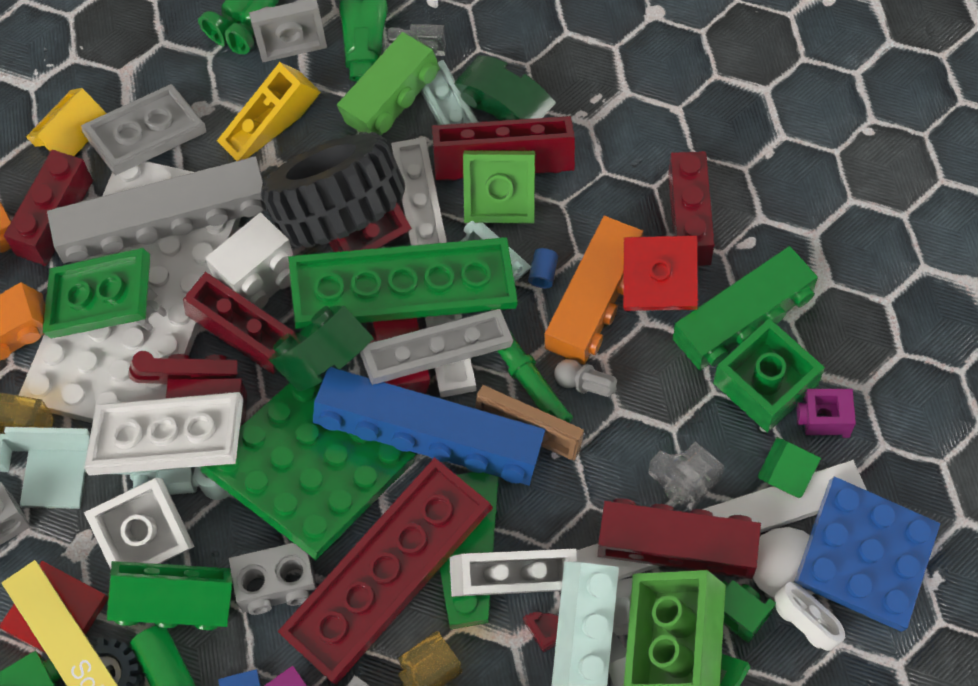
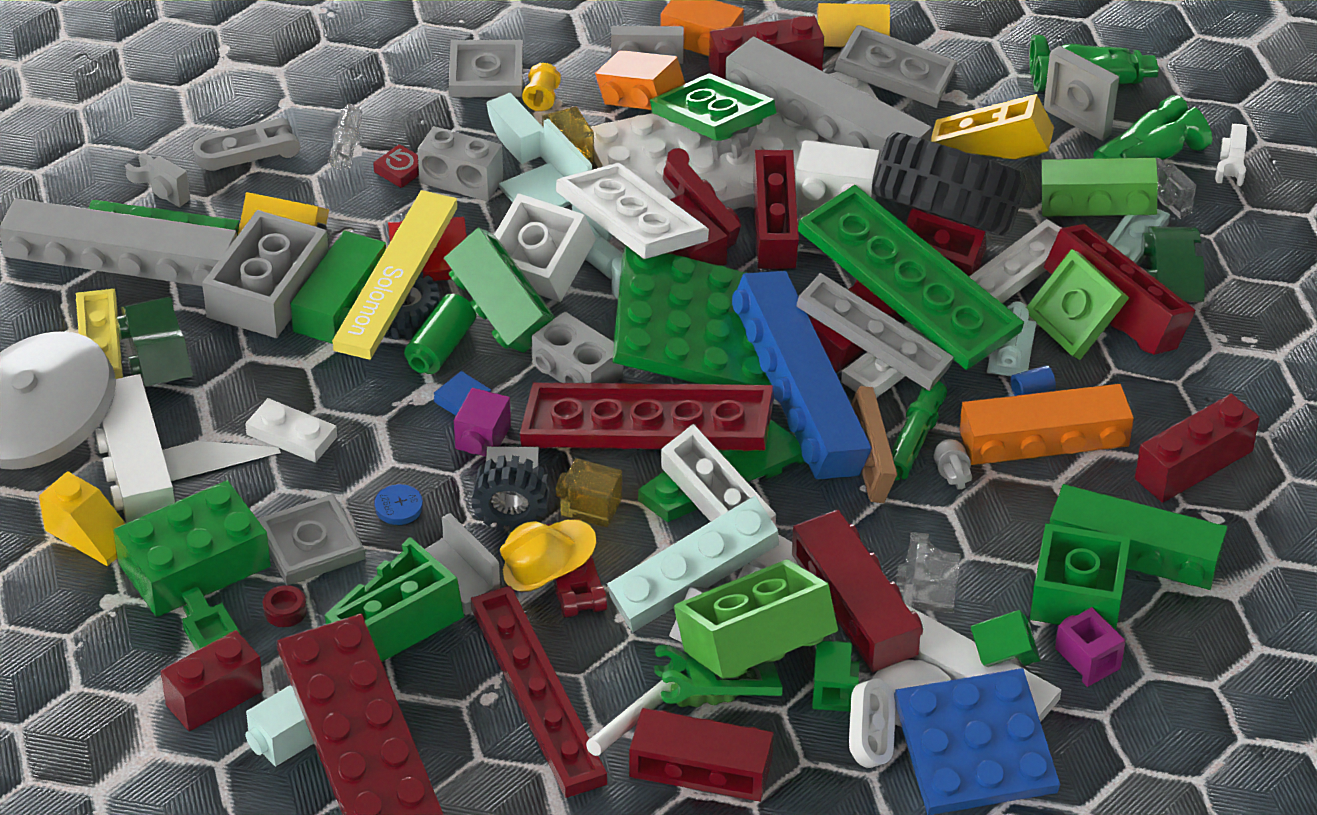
camera: 50 degrees right, 20 degrees down
(328, 341) = (796, 247): dark green brick -> none
(660, 273) = (1099, 444): red plate -> none

